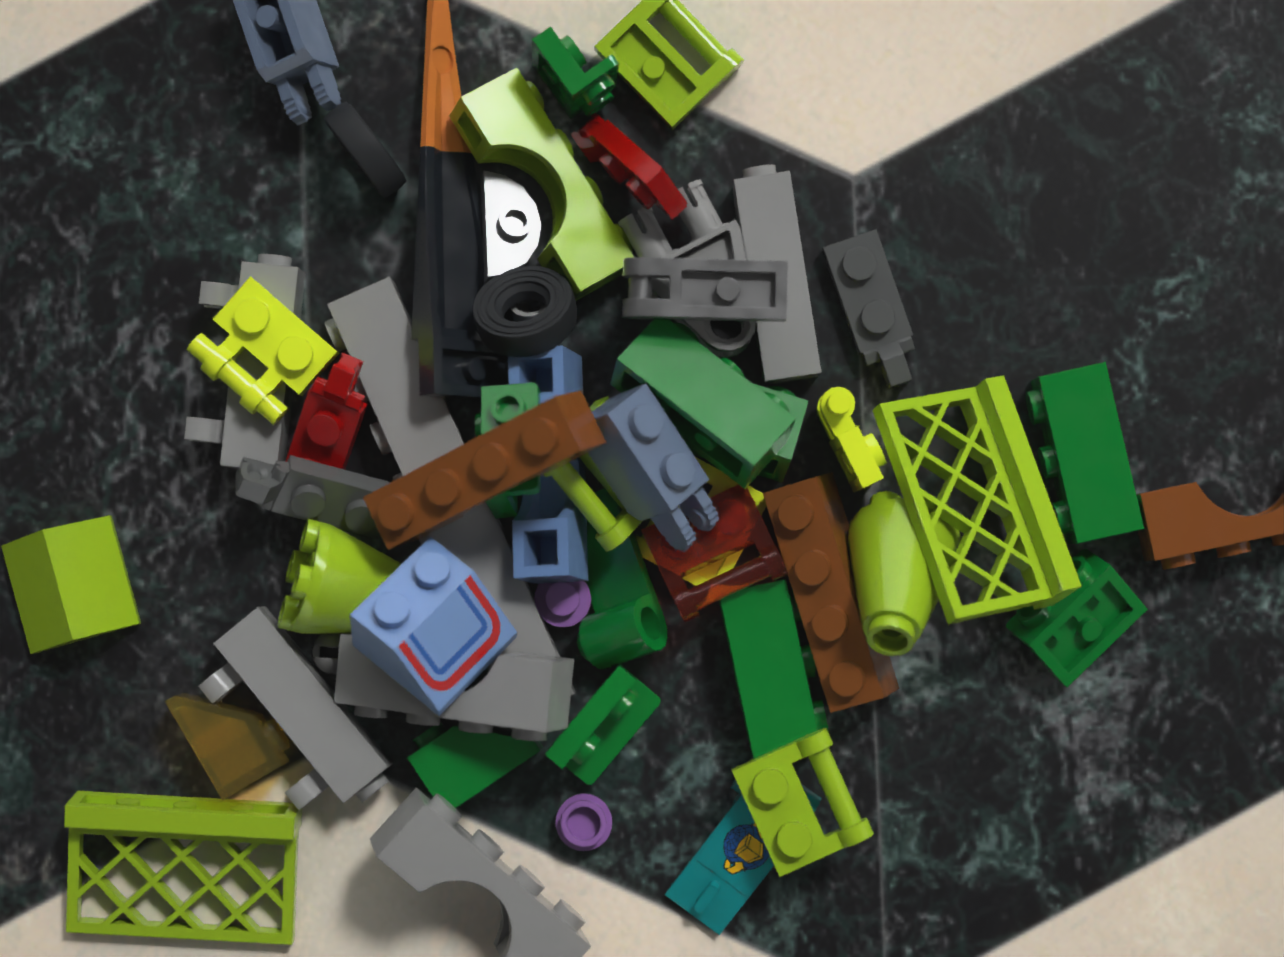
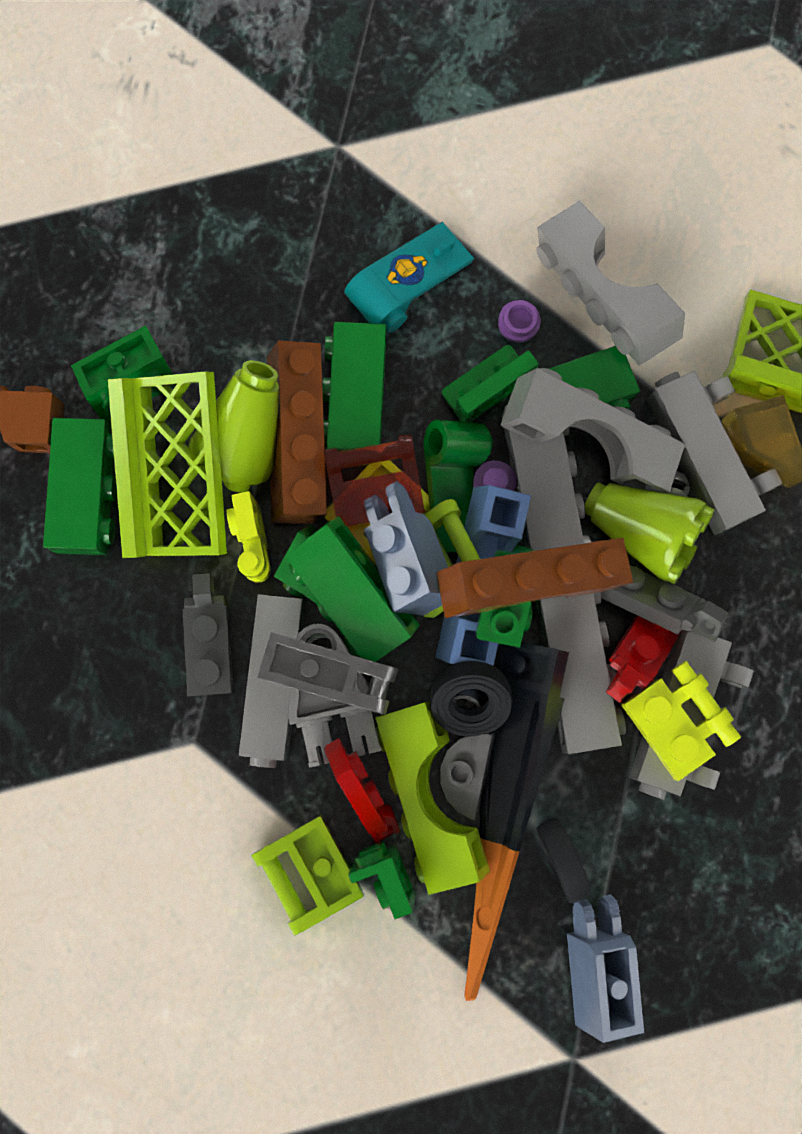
camera: 165 degrees left, 5 degrees down
(432, 626) = (602, 471): medium blue slope -> none
(784, 810) = (373, 282): lime plate -> none

